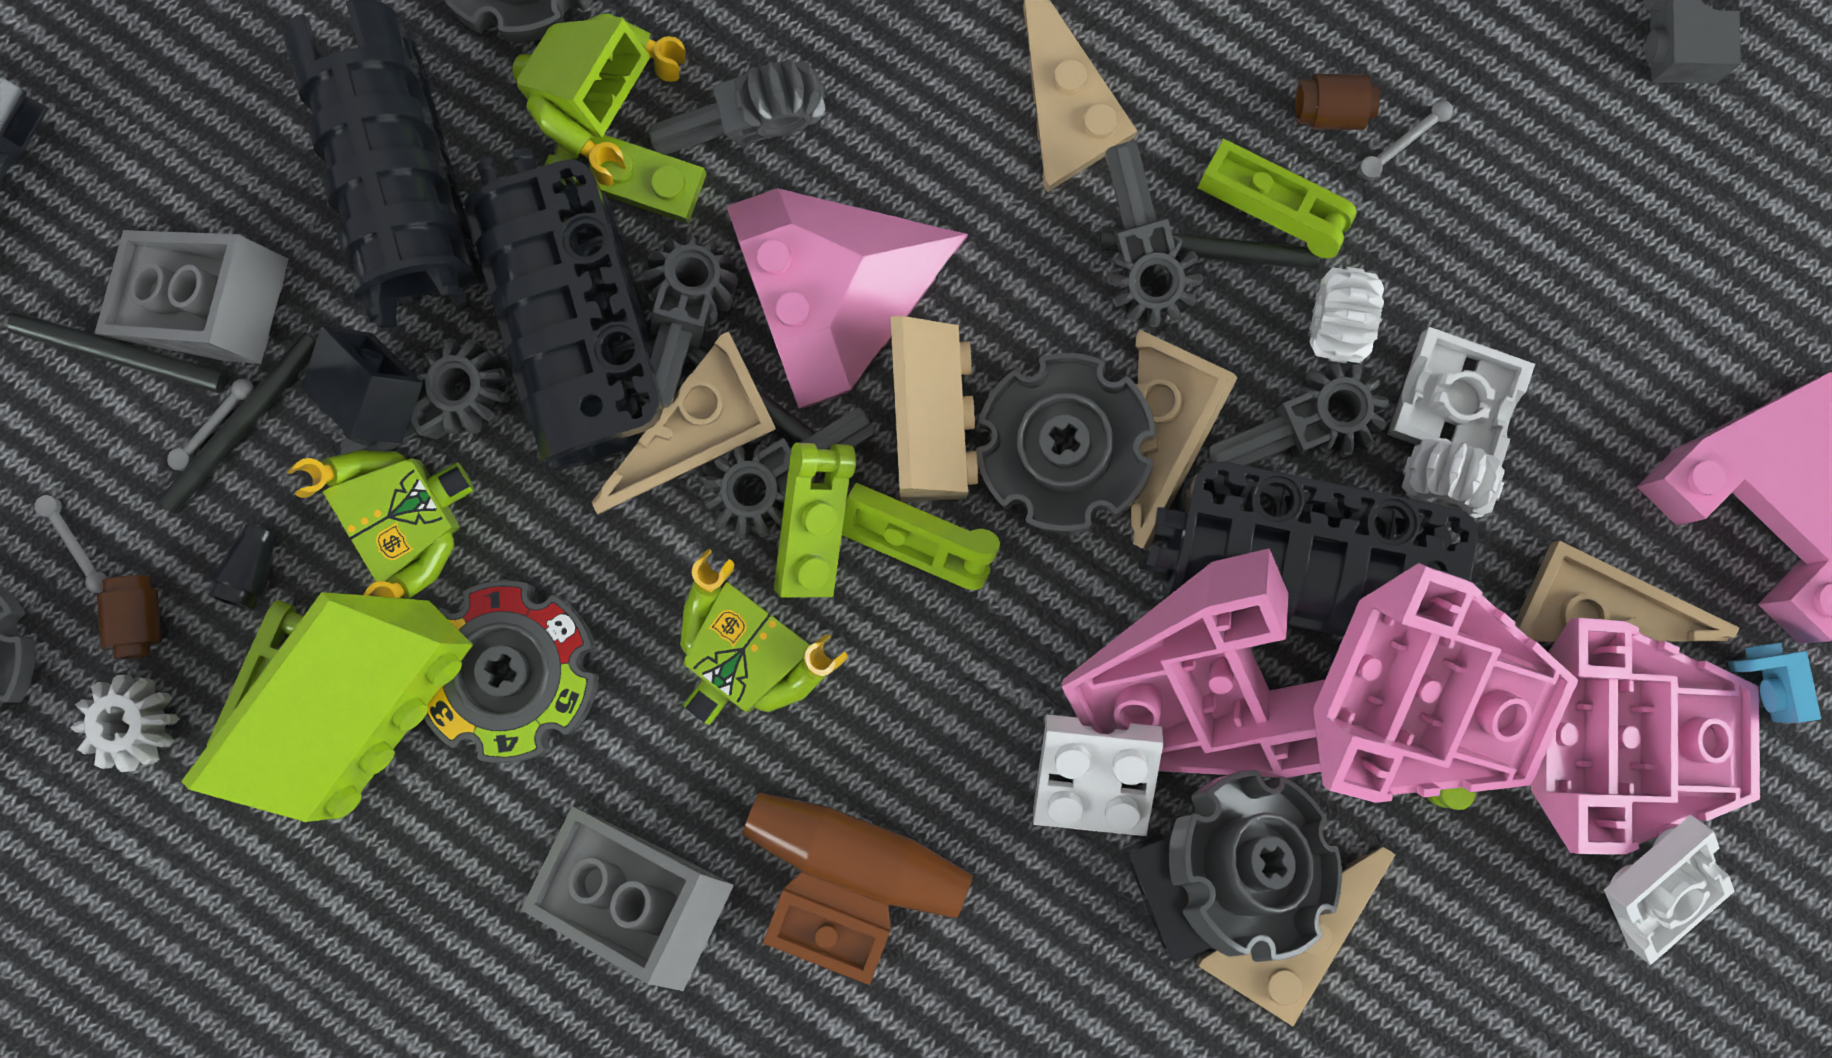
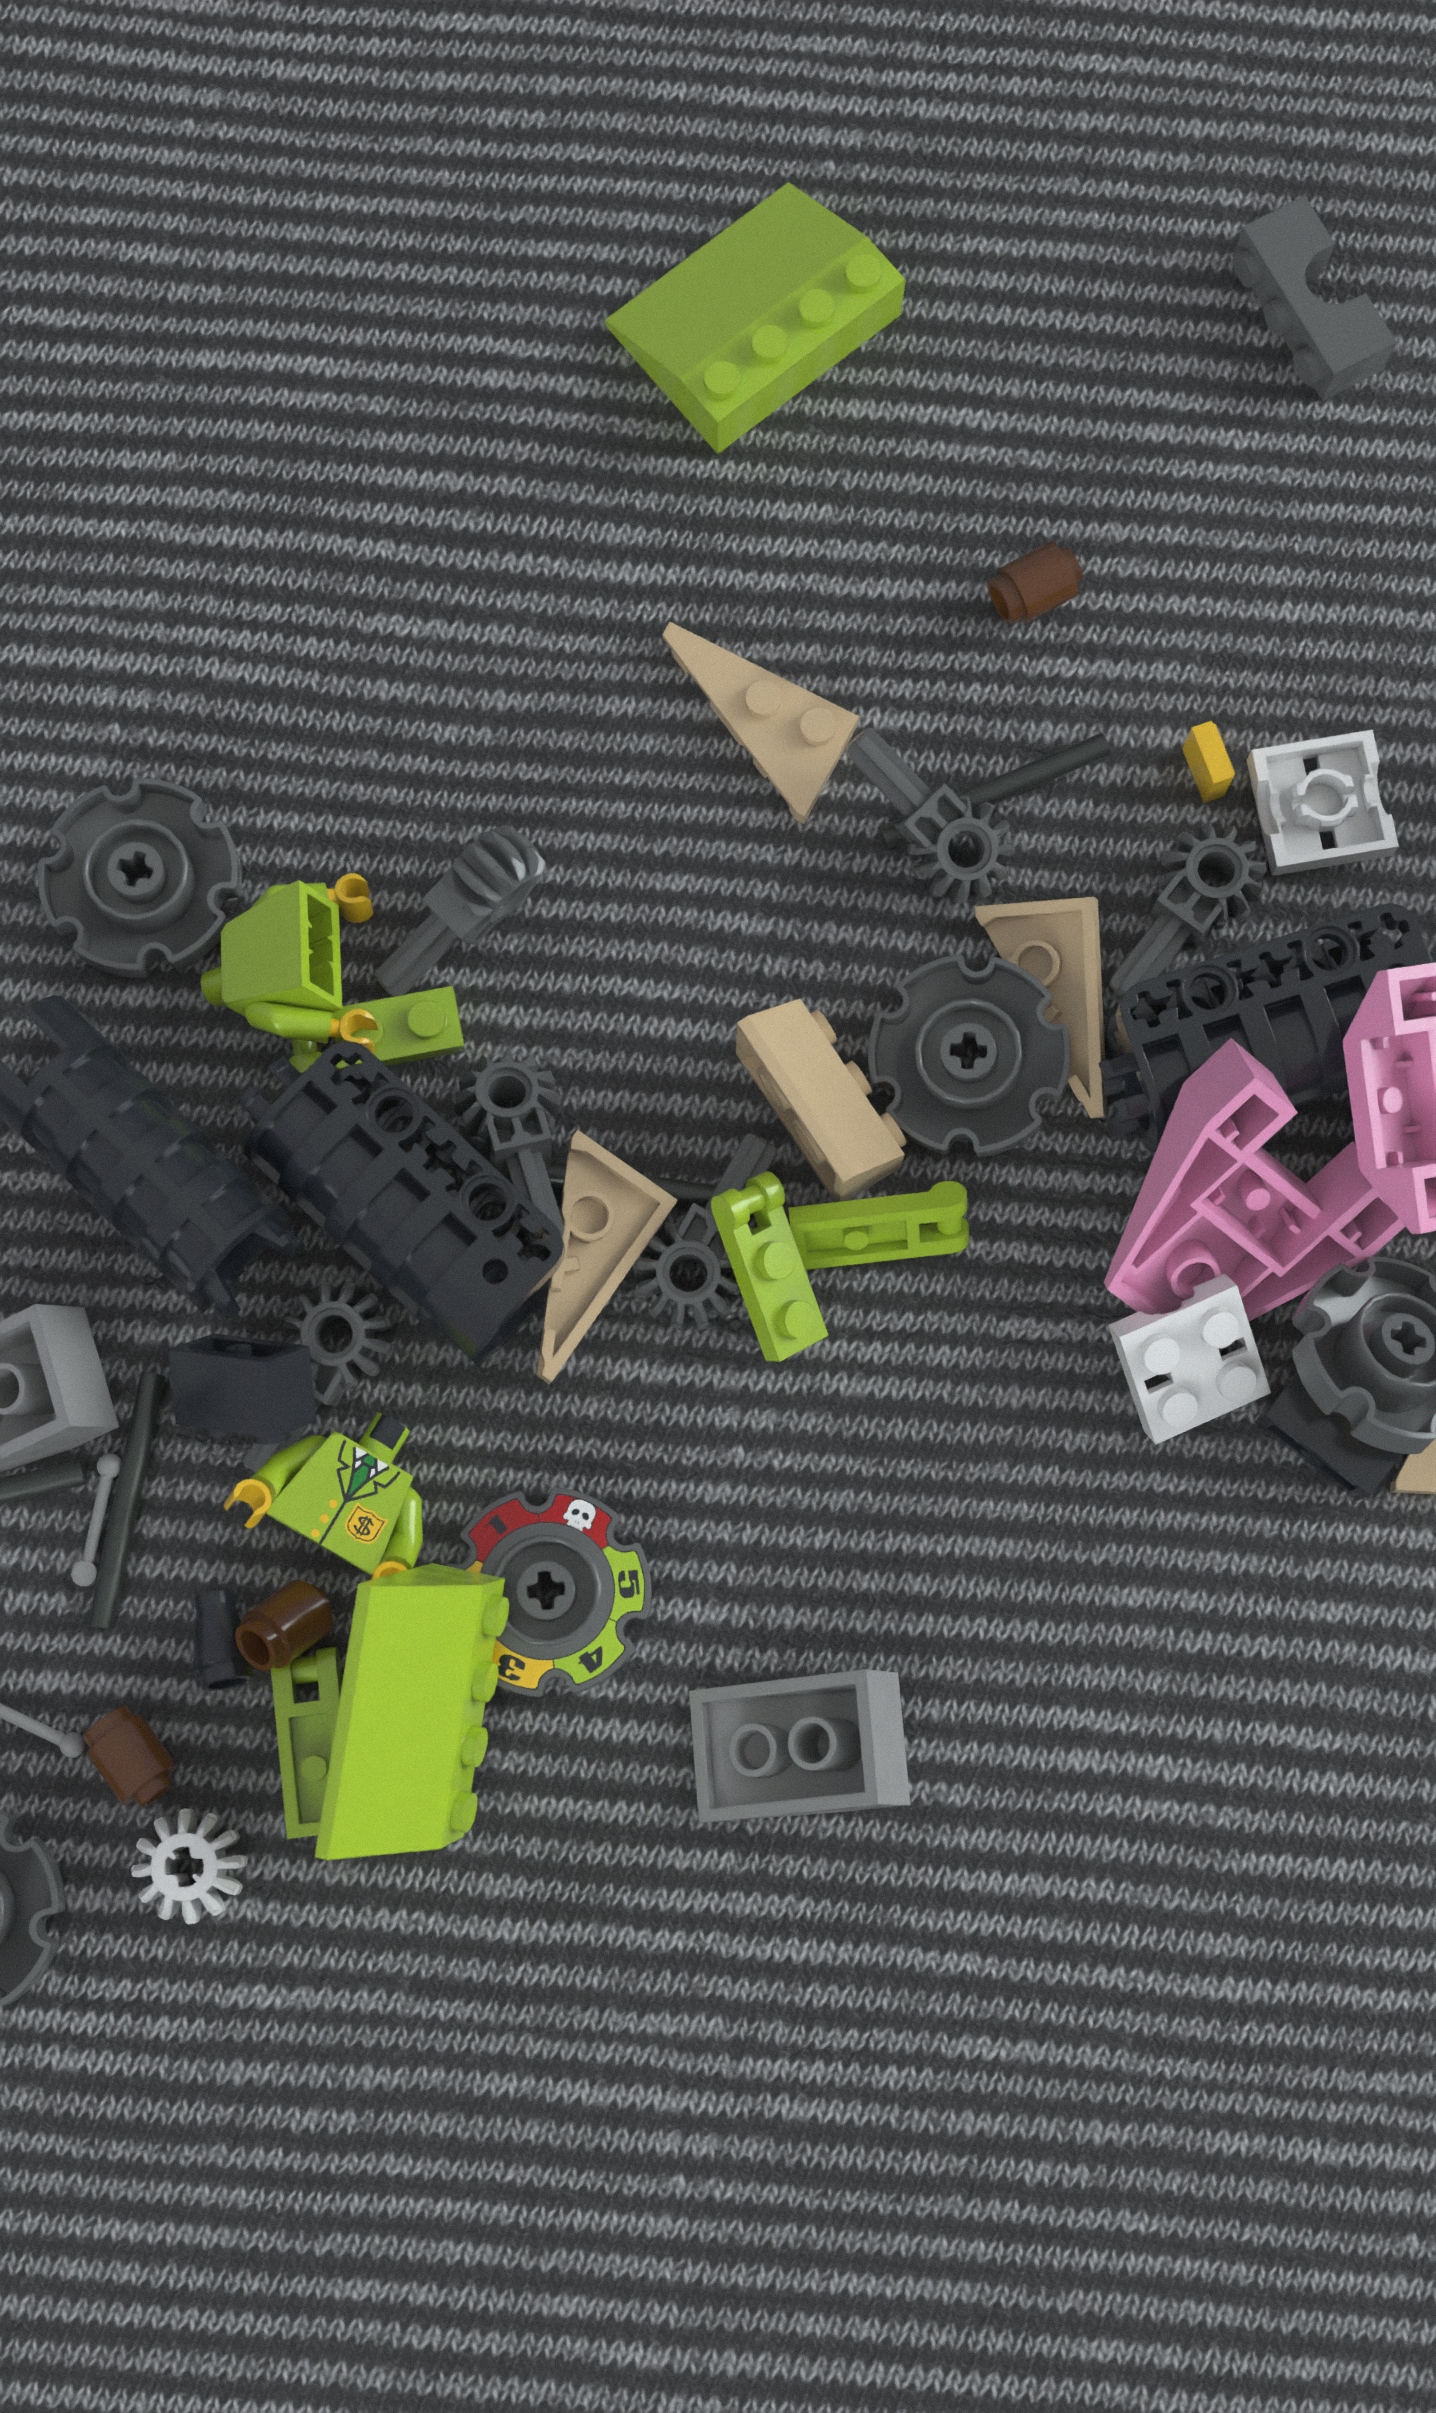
camera: 30 degrees left, 5 degrees down
(292, 583) = (284, 1625): none -> reddish brown brick
(743, 650) = (774, 1434): lime torso -> none
(833, 281) = (647, 1026): bright pink wedge -> none
(848, 878) = (1007, 1595): dark orange plate -> none
(1279, 198) = (1034, 706): lime plate -> none
(1346, 315) = (1167, 782): white gear -> none
(1372, 166) = (1105, 626): light grey hinge -> none
(1393, 316) = (1208, 761): none -> yellow tile
(1453, 476) = (1359, 877): white gear -> none

